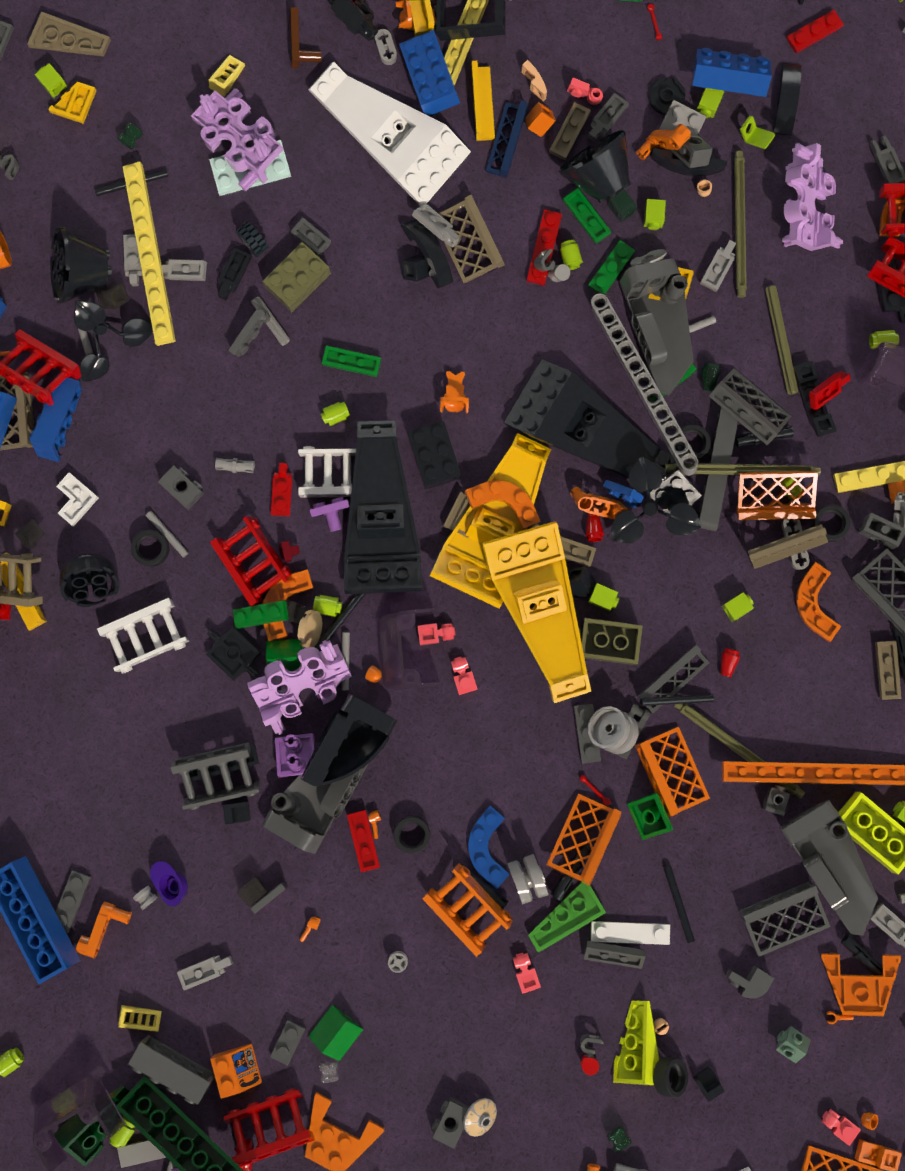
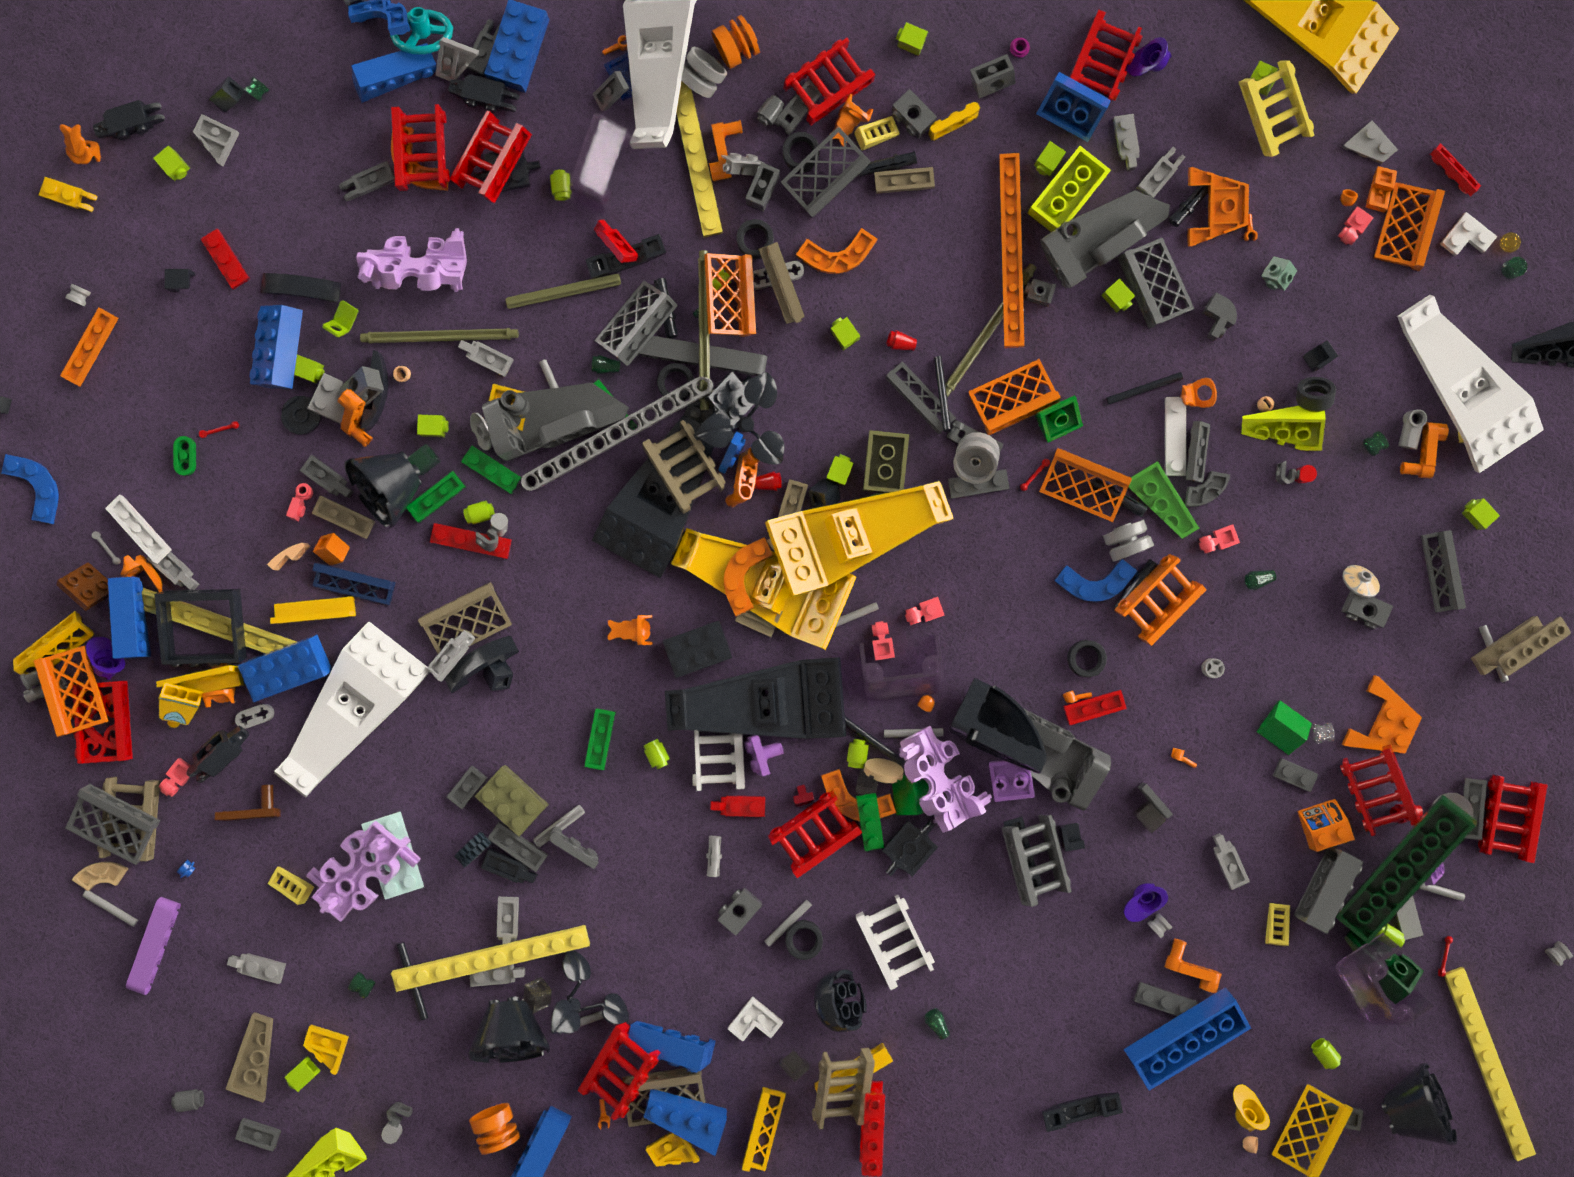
camera: 90 degrees left, 5 degrees up
(63, 673) = (937, 1023): none -> clear green cone
(152, 44) = (258, 967): none -> light grey hinge
(252, 282) = (517, 846): none -> dark grey plate
(462, 609) = (856, 614): none -> light grey bar
(485, 1012) = (1258, 579): none -> clear green cone
(574, 962) = (1207, 491): none -> dark grey tile
(595, 436) = (673, 483): none -> dark tan fence
(672, 947) = (1190, 397): none -> orange hair
(771, 879) = (1118, 296): none -> lime brick

